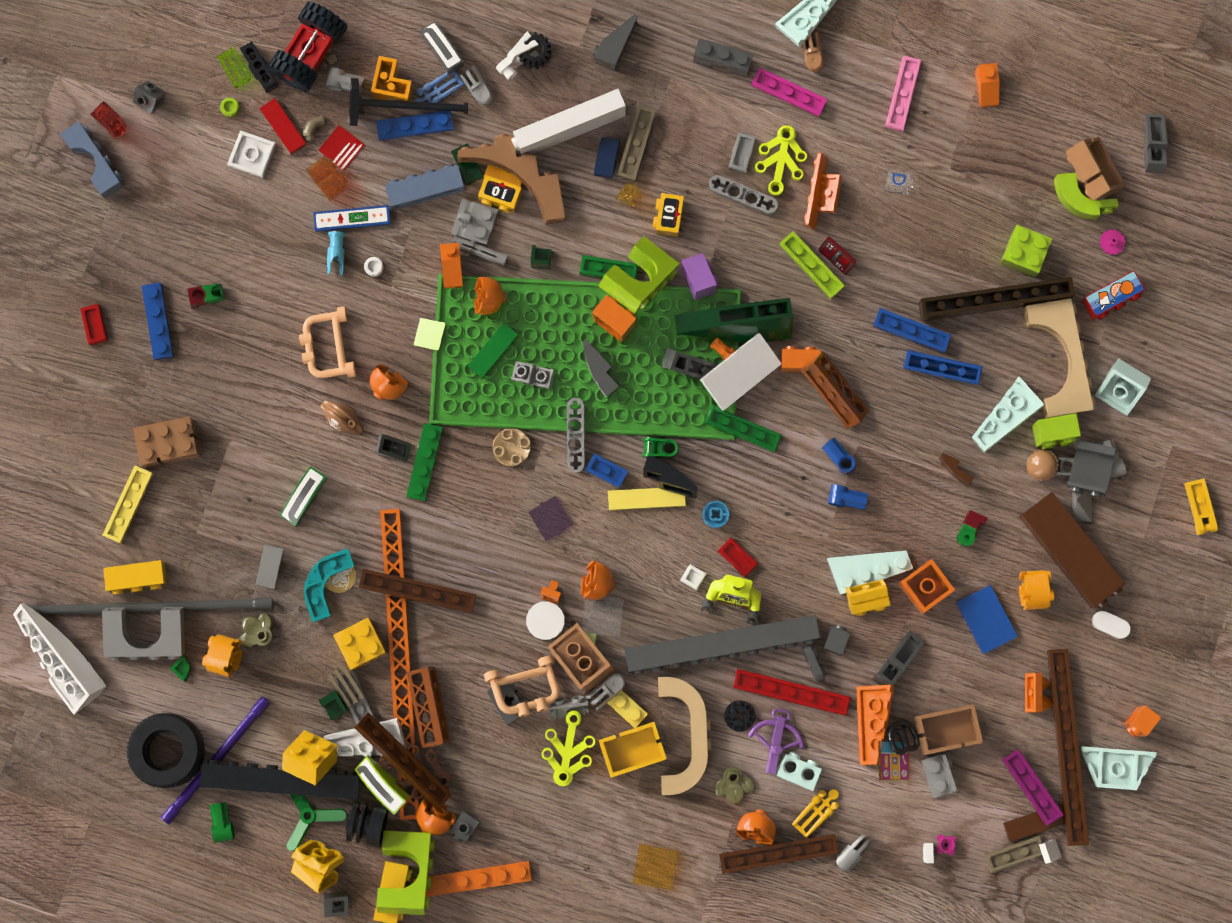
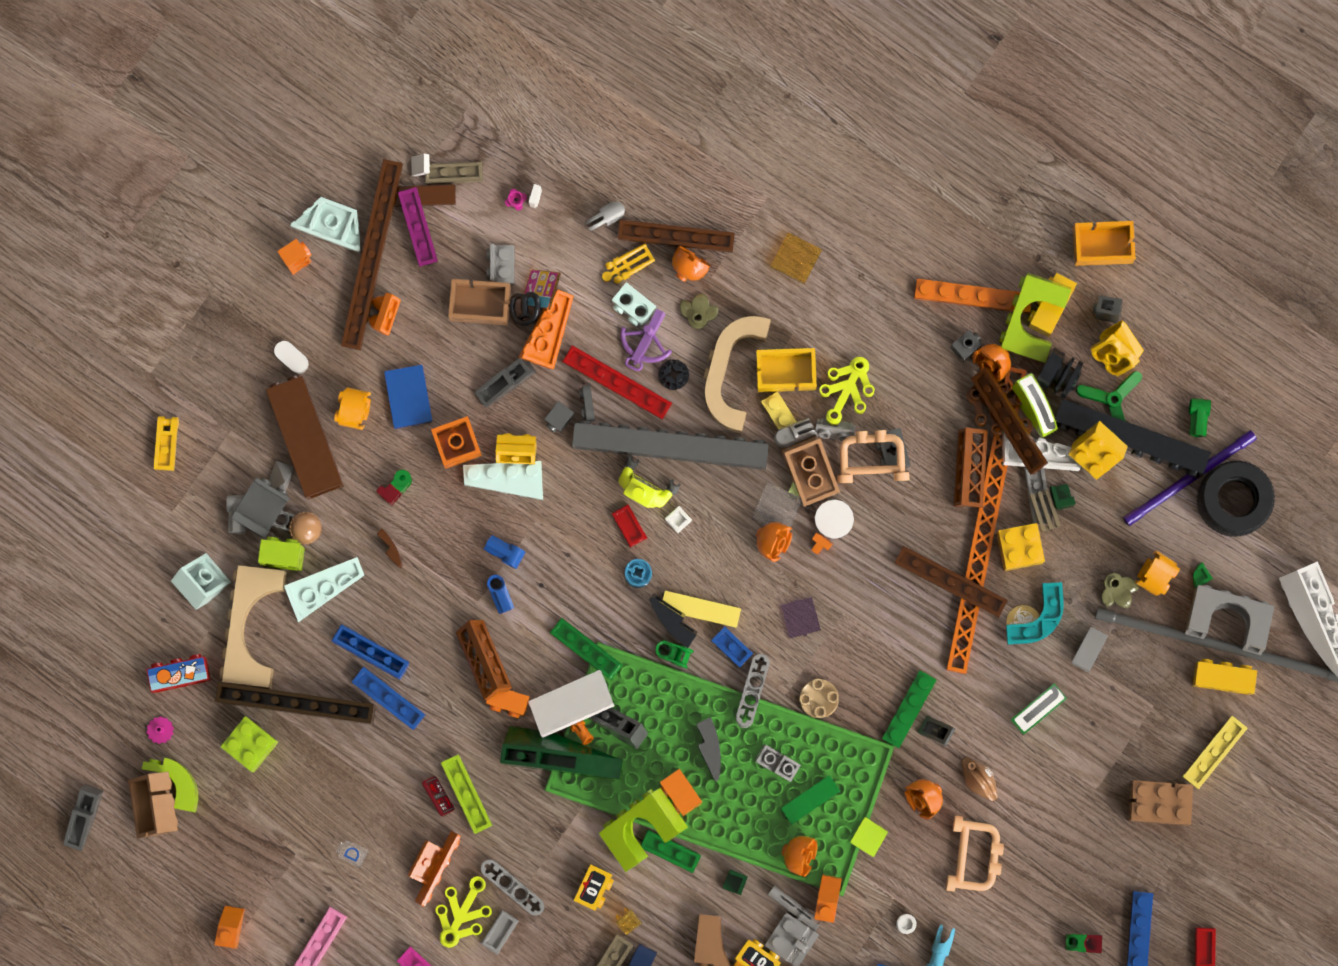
camera: 160 degrees left, 0 degrees up
(699, 276) = (582, 814): medium lavender brick -> none

